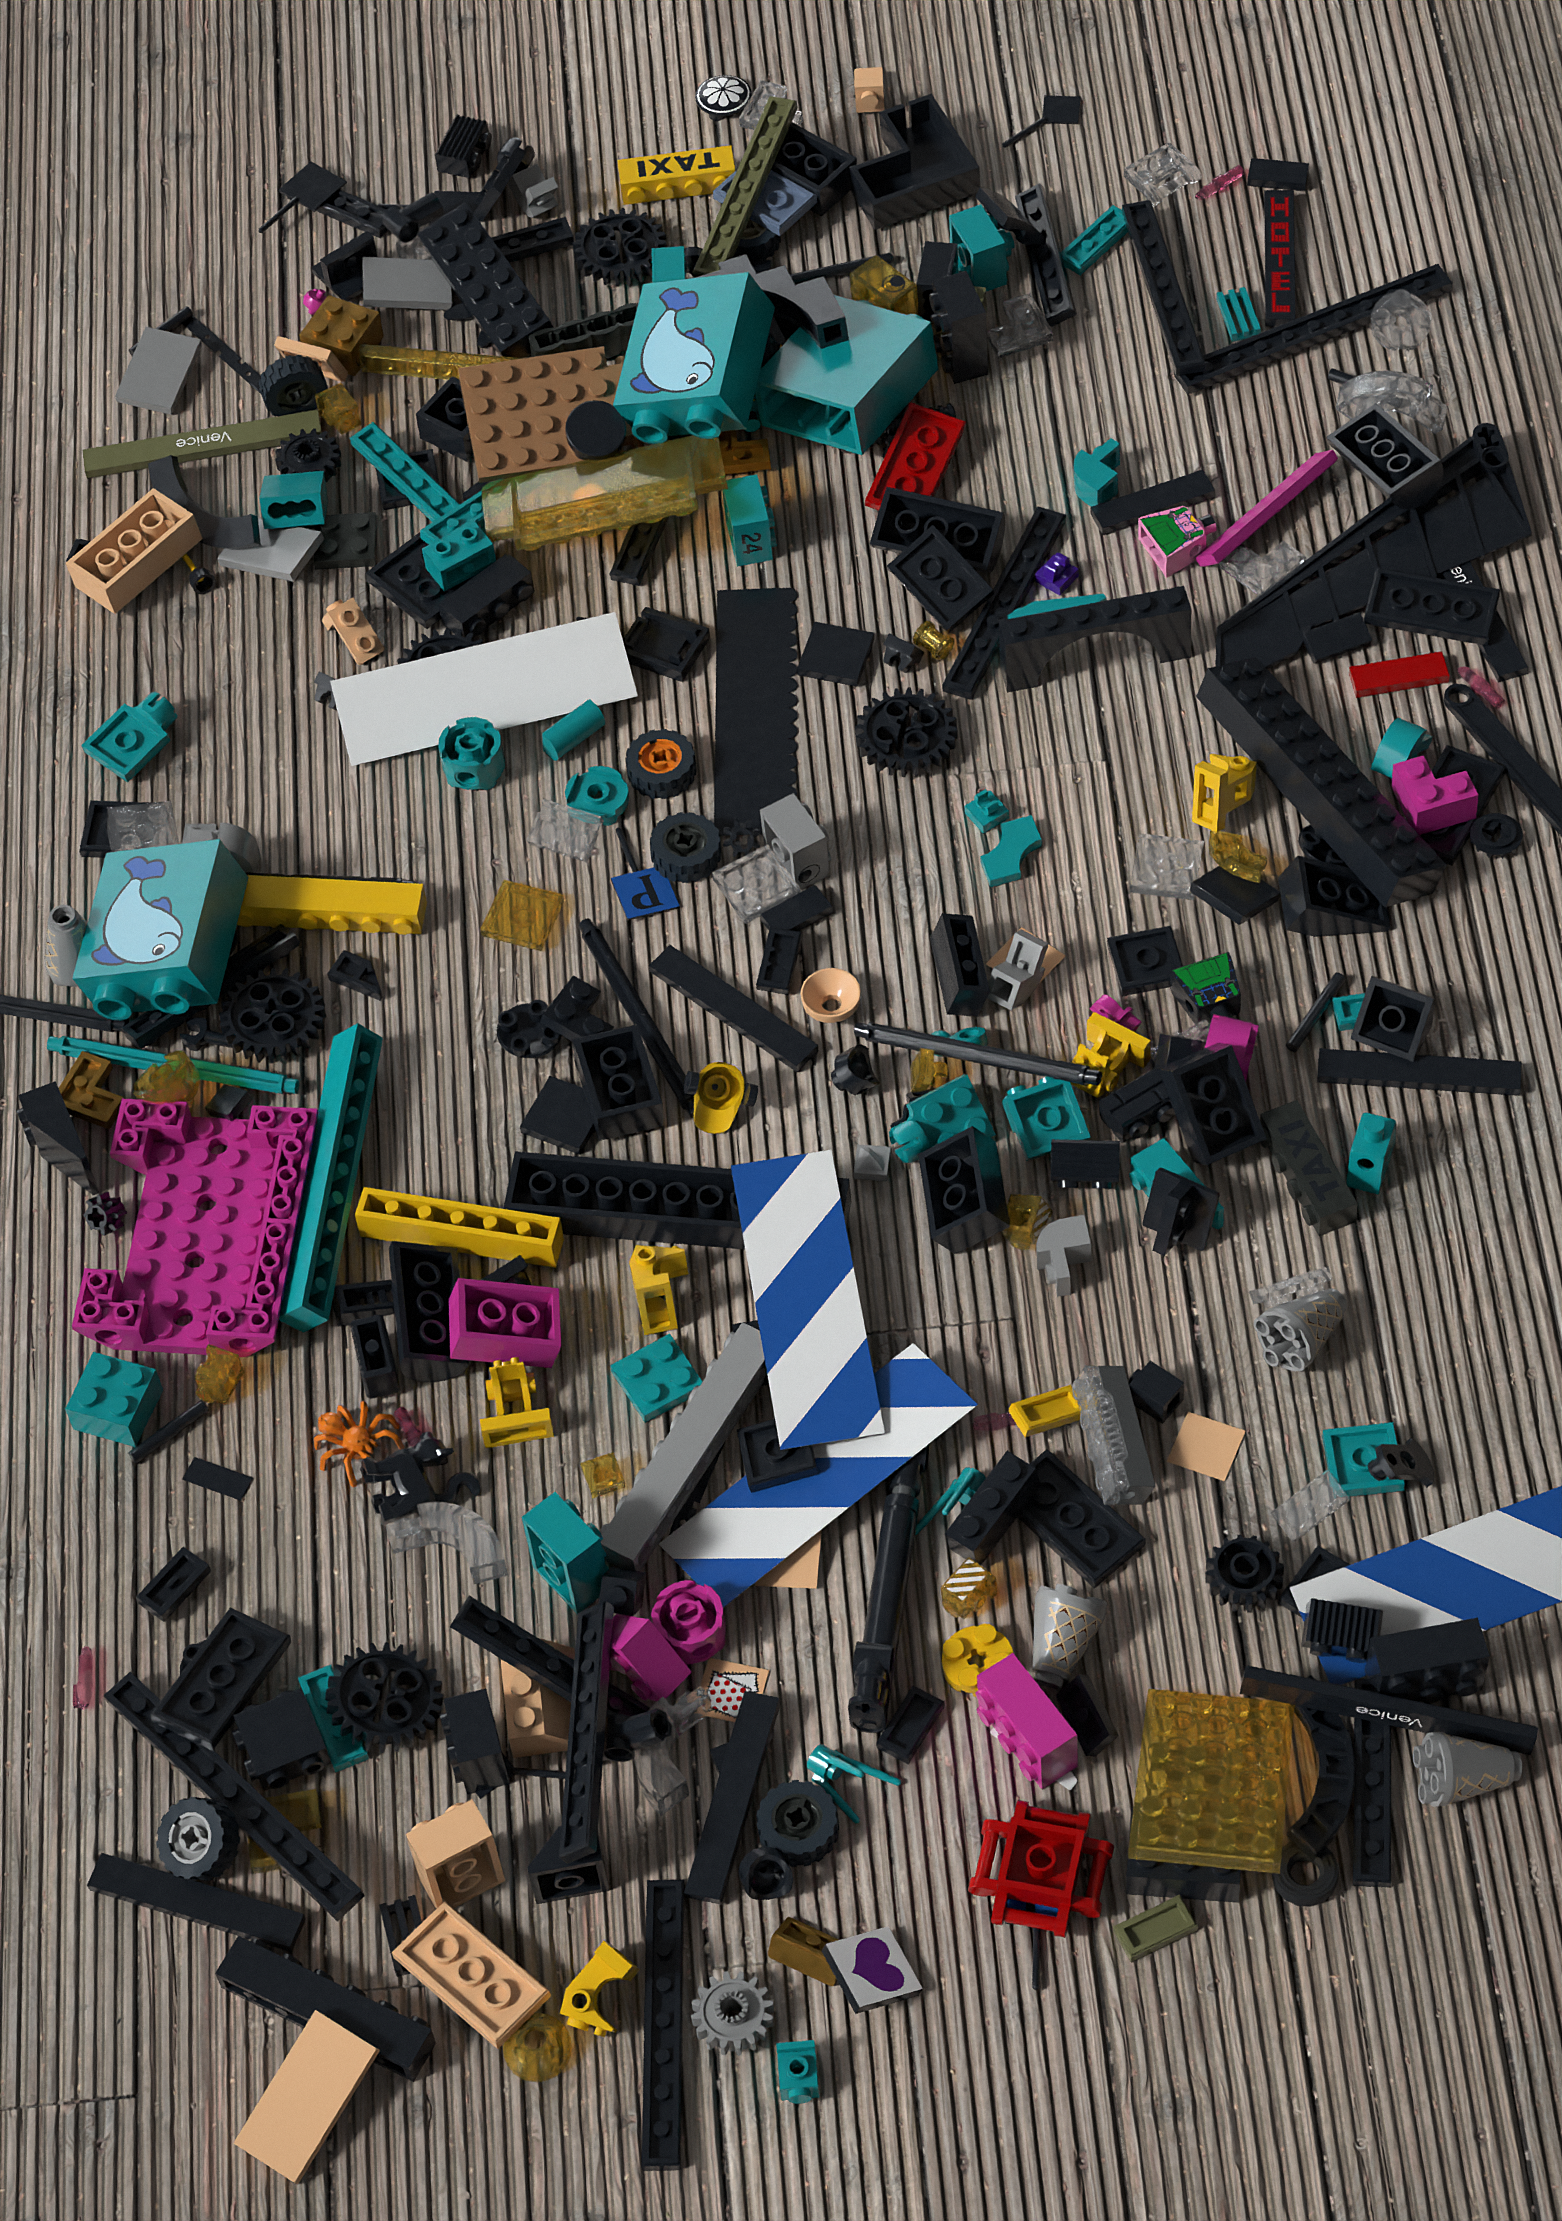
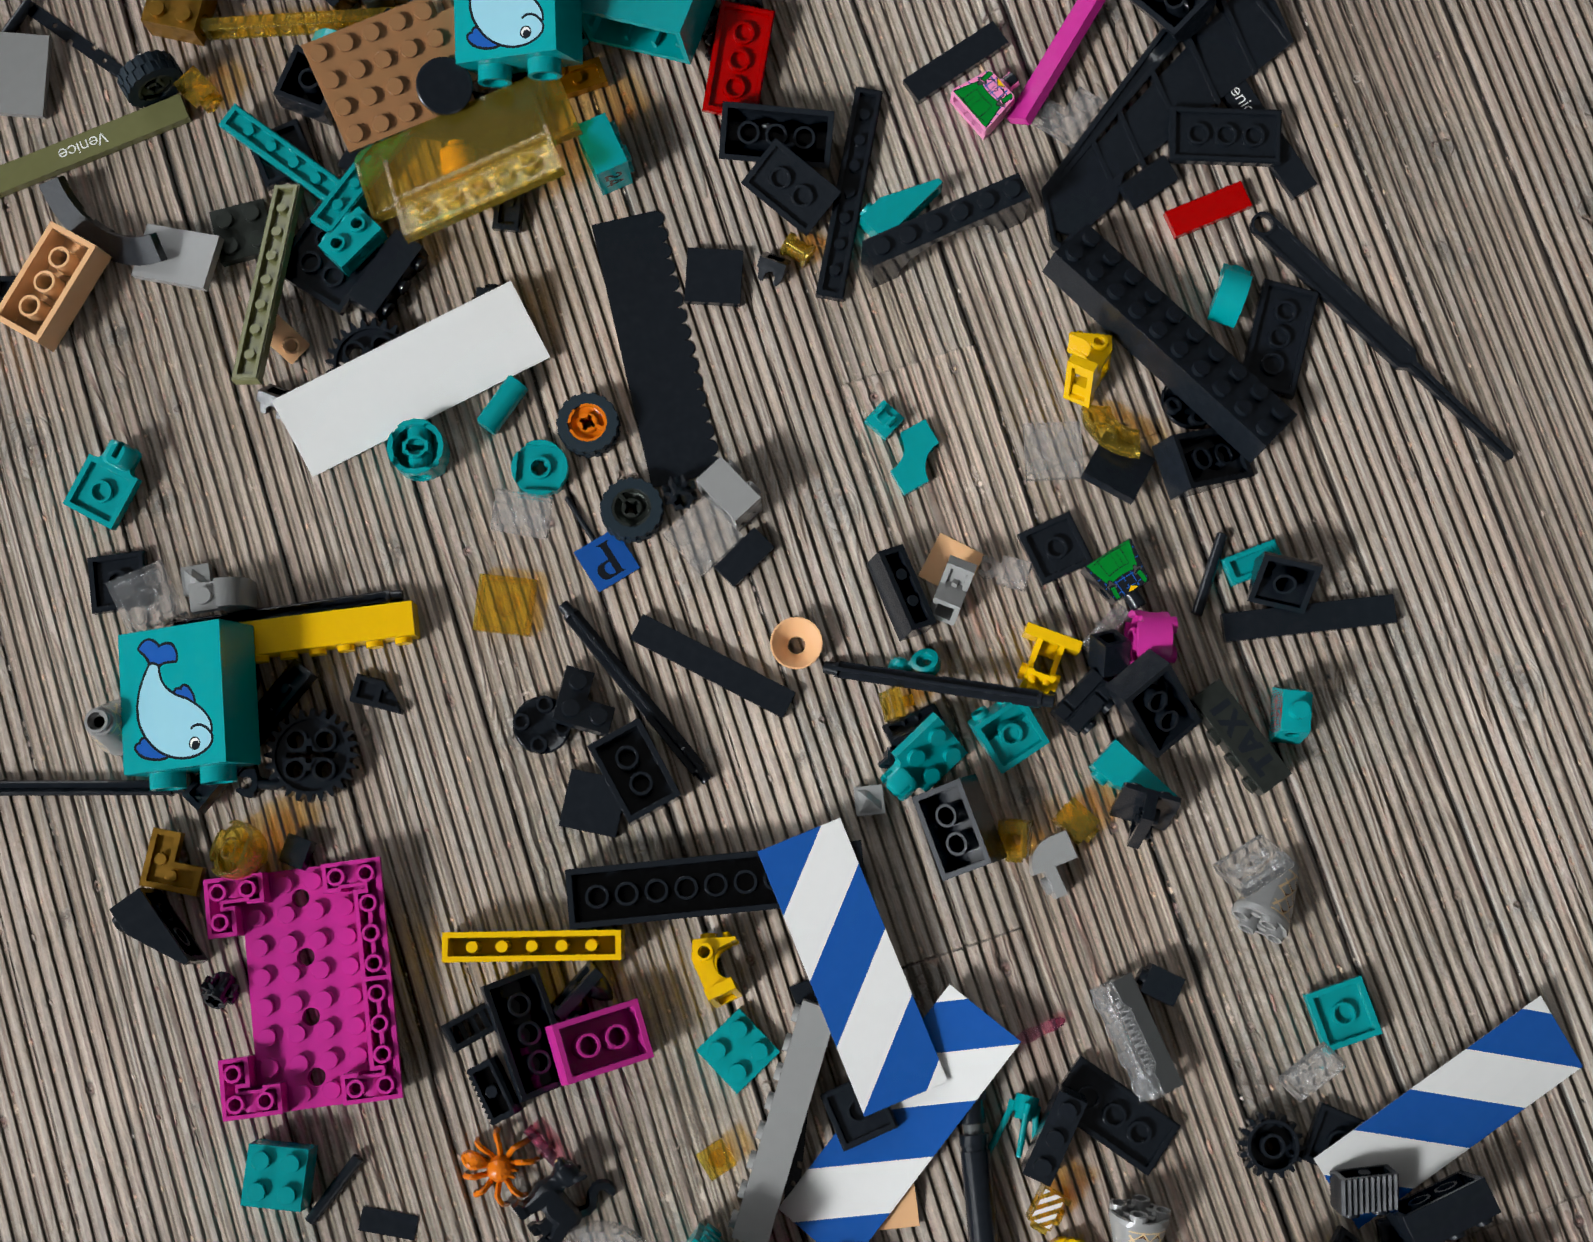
camera: 15 degrees left, 25 degrees up
(200, 578) = (121, 300): black hinge -> none
(207, 1070) = (213, 820): teal piece -> none
(218, 1375) = (362, 1131): clear yellow brick -> none
(294, 500) = (184, 204): teal piece -> none
(309, 454) = (188, 163): black gear -> none
(326, 359) = (158, 43): light nougat tile -> none
(331, 1177) = (408, 915): teal brick -> none
(358, 579) = (267, 285): none -> olive tile
(507, 1384) = (631, 1122): yellow tile -> none
(659, 644) = (555, 291): black container -> none
(718, 1095) = (723, 766): yellow cap -> none
(779, 961) = (742, 613): black plate -> none
(854, 1071) = (835, 718): black piece -> none
(889, 723) = (772, 350): black gear -> none
(1045, 1411) = (1072, 1021): yellow tile -> none
(1057, 574) = (888, 156): dark purple tile -> none
(1085, 1162) = (1053, 772): black brick -> none
(1088, 972) = (1010, 573): none -> clear plate
(1095, 474) = (897, 48): teal brick -> none
(1103, 1216) = (1076, 821): none -> clear yellow brick
(1110, 1009) = (1046, 616): dark pink piece -> none
(1206, 1446) = (1208, 1020): light nougat sticker -> none
(1390, 1465) = (1370, 1023): black piece -> none
(1431, 801) = (1268, 349): dark pink brick -> none
(1481, 686) = (1279, 209): clear pink piece -> none
(1487, 826) = (1333, 355): black gear -> none

